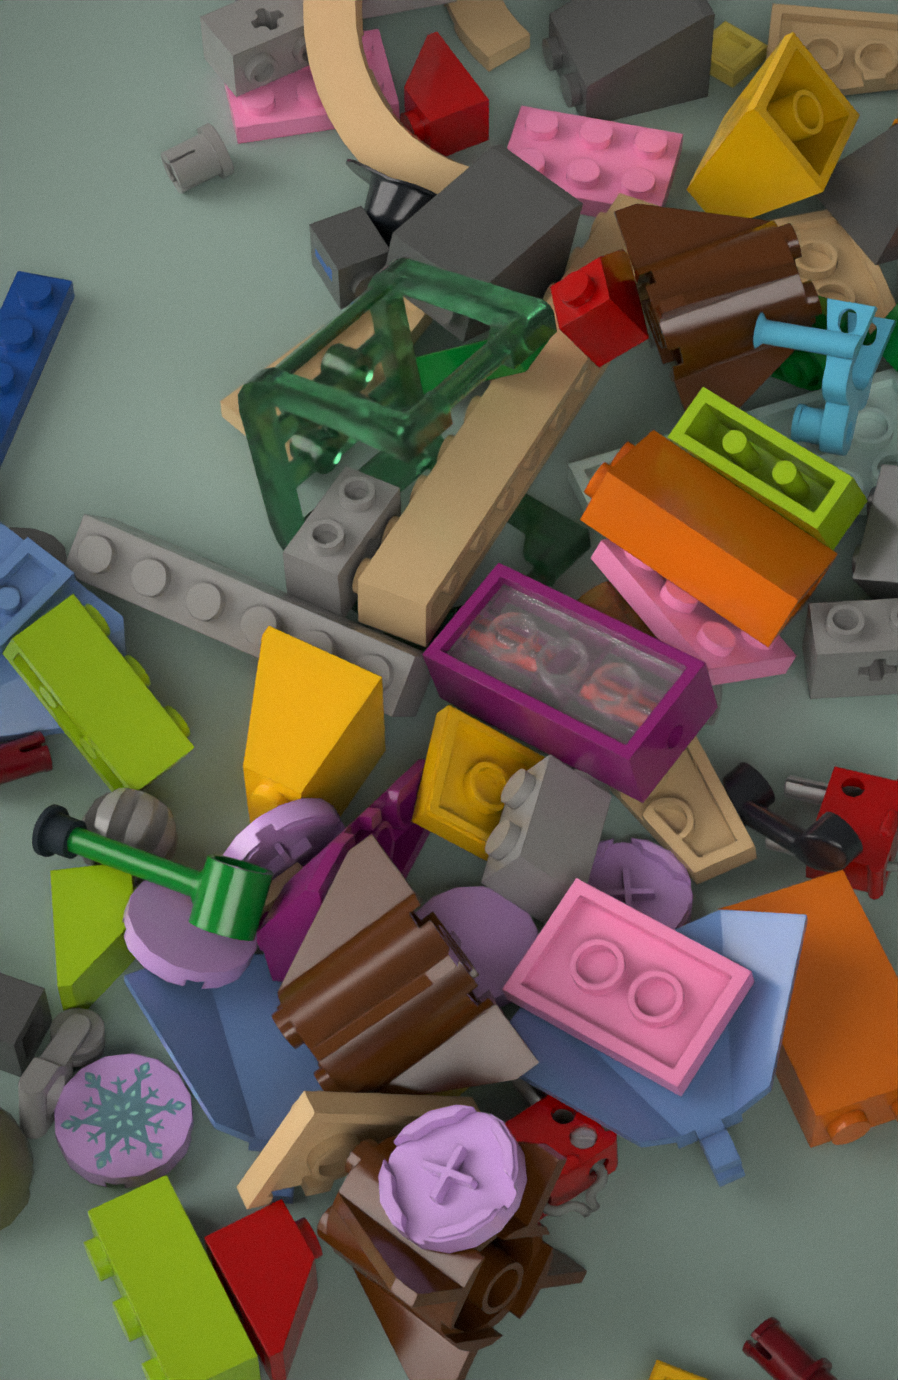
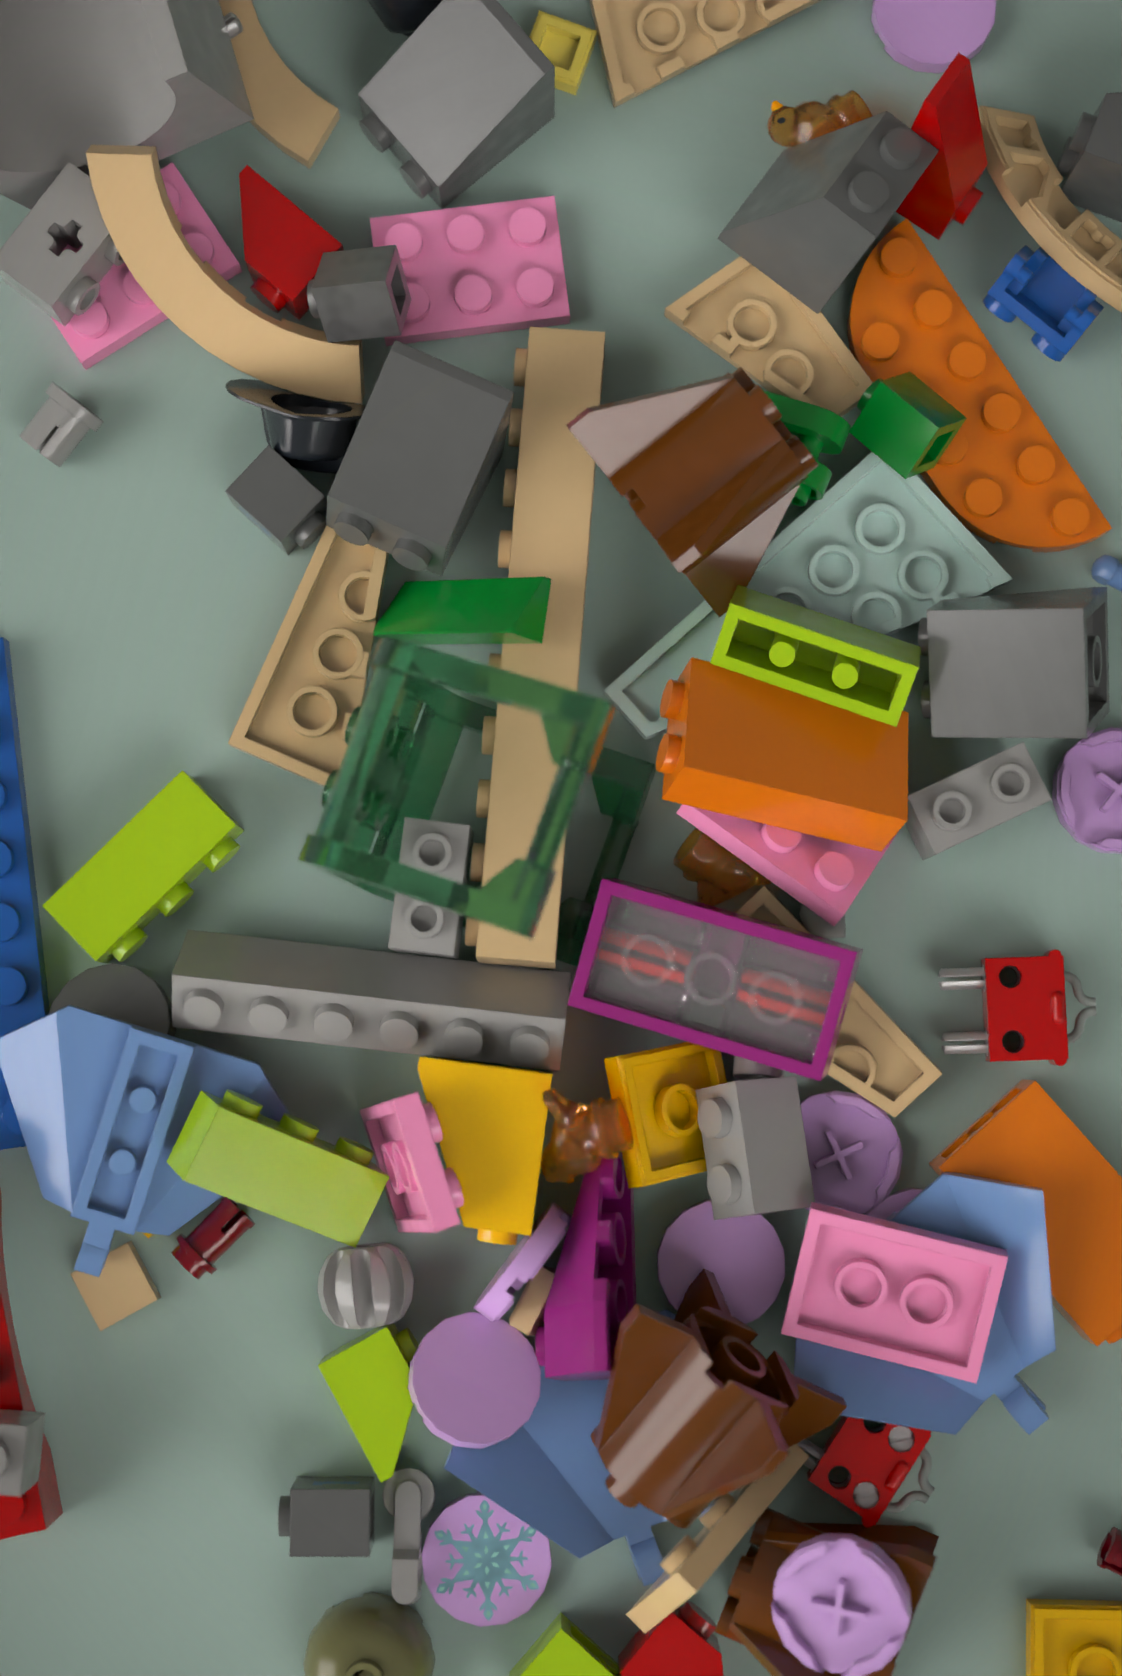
camera: 25 degrees left, 30 degrees up
(102, 466) = (145, 870): none -> lime brick
(221, 720) = (404, 1147): none -> bright pink plate
(224, 895) = (503, 1357): green piece -> none
(386, 747) = (583, 1135): none -> clear orange animal
(479, 123) = (360, 294): none -> flat silver brick
(601, 308) = (581, 521): red slope -> none
(775, 138) = (671, 208): yellow slope -> none
(824, 846) = (1009, 1064): black bar -> none
(846, 373) = (858, 494): medium azure piece -> none

